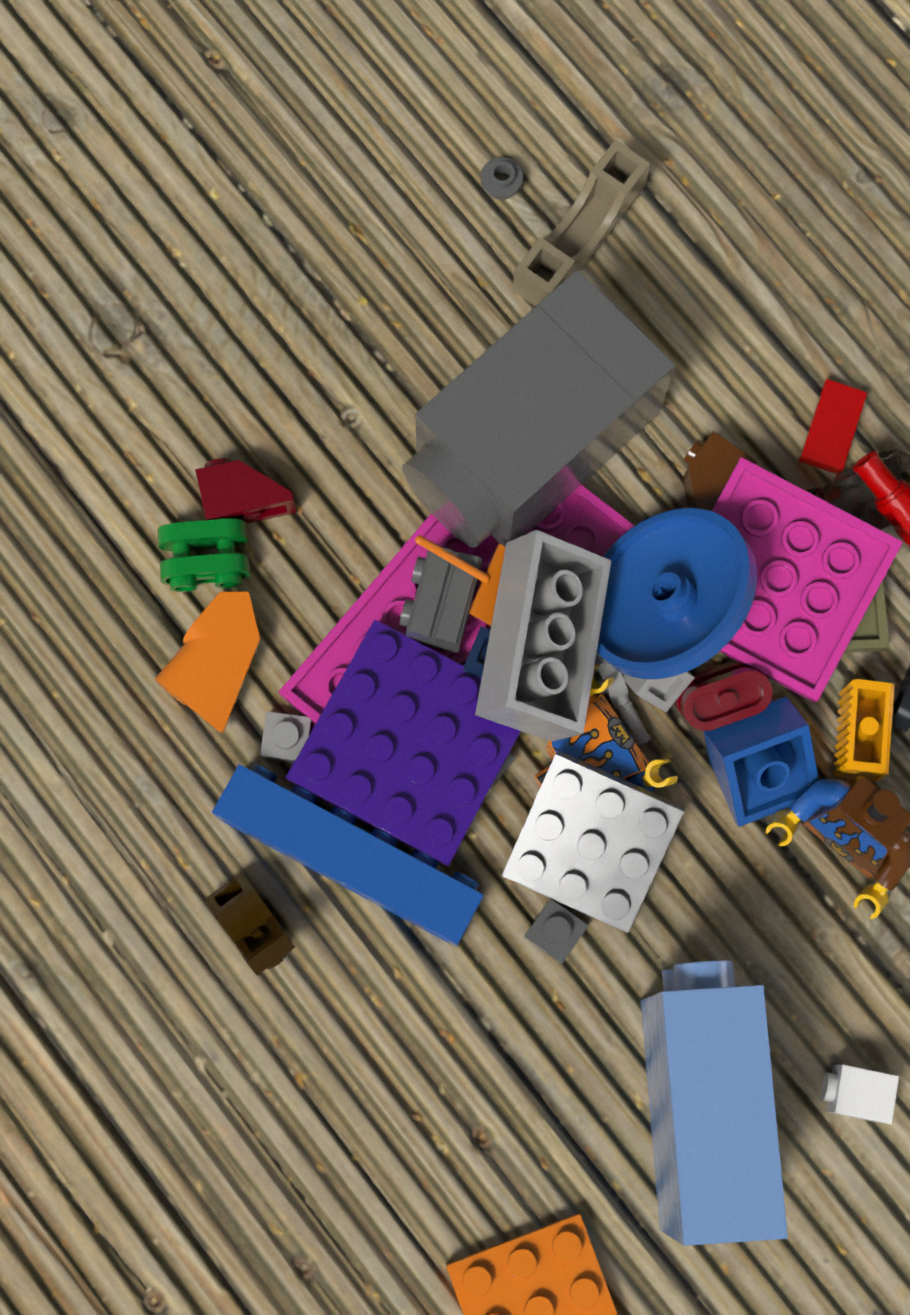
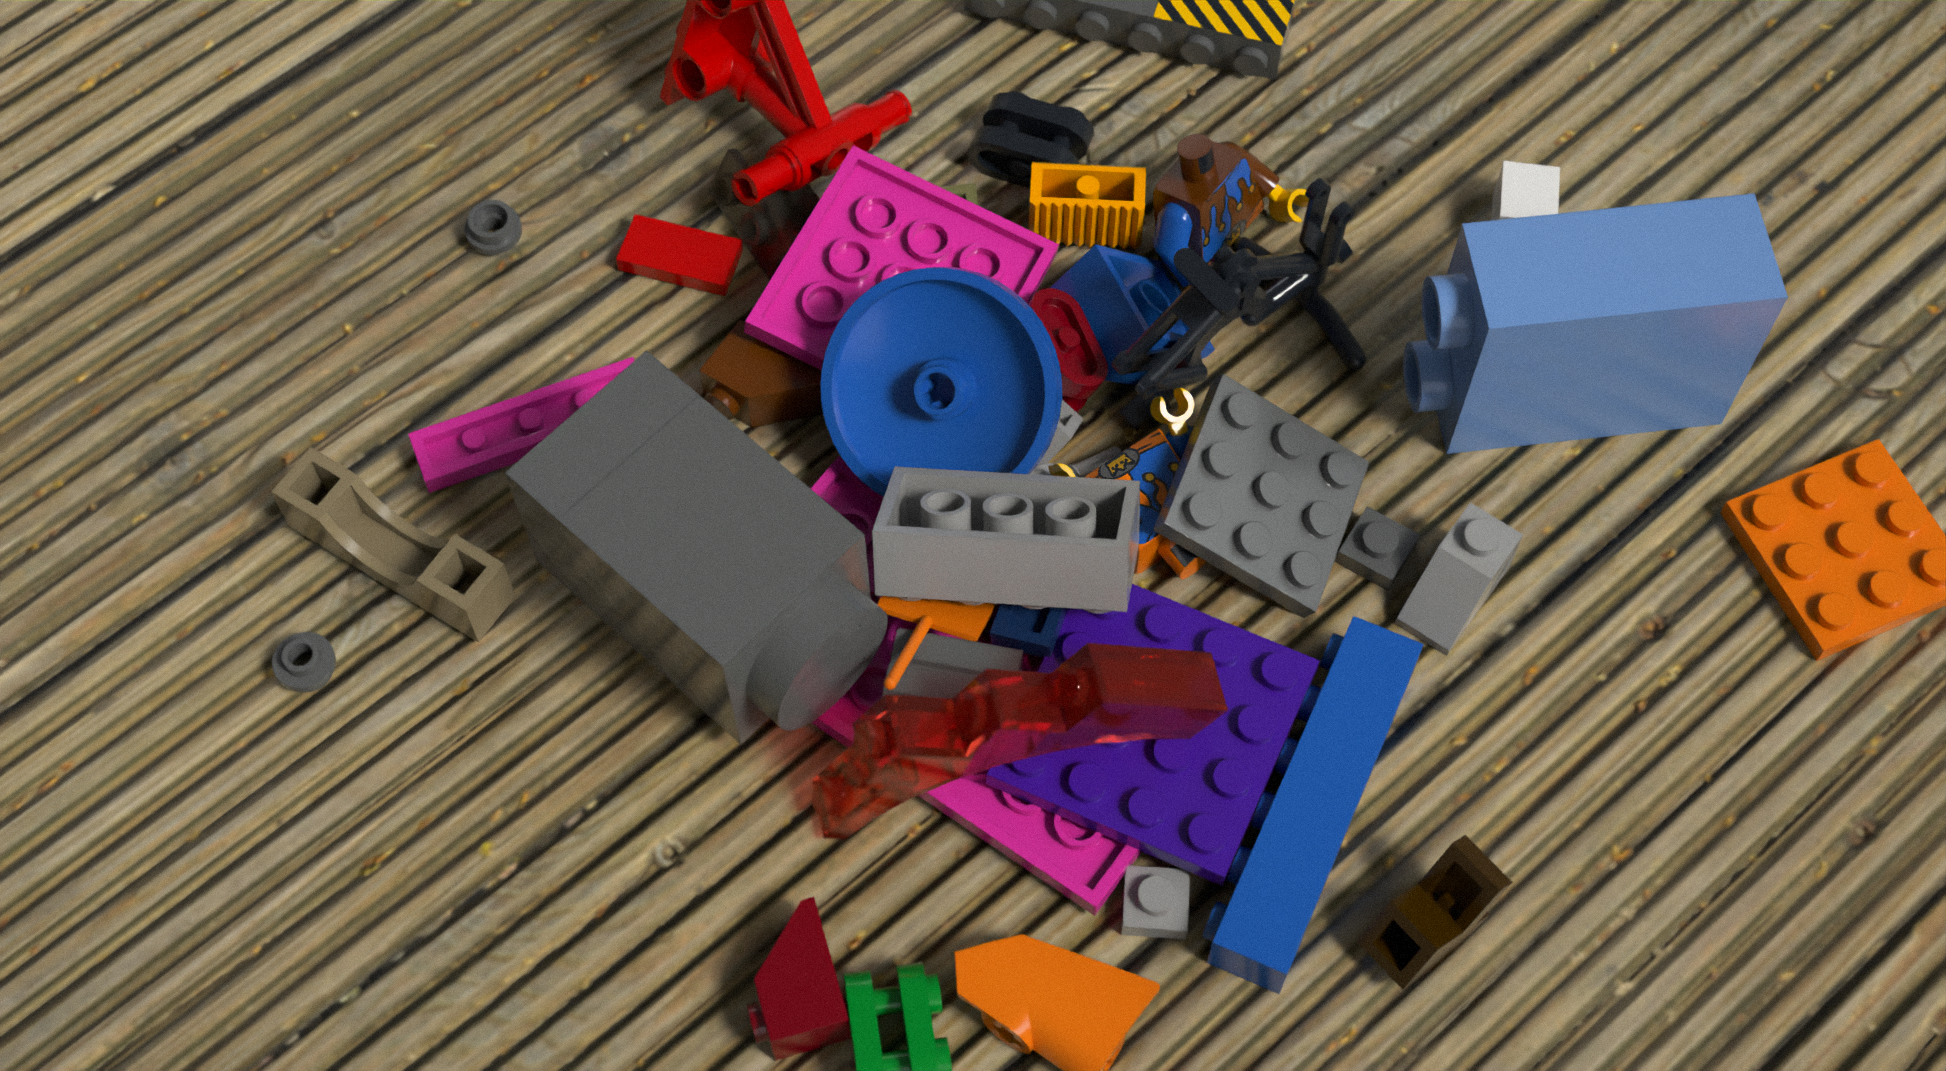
camera: 90 degrees left, 15 degrees down
(393, 643) = (1011, 715): none -> clear red arch
(519, 985) = (1459, 578): none -> light grey slope
(683, 321) = (502, 431): none -> dark pink plate
(745, 809) = (1231, 290): none -> black piece
(866, 284) = (488, 216): none -> dark grey plate

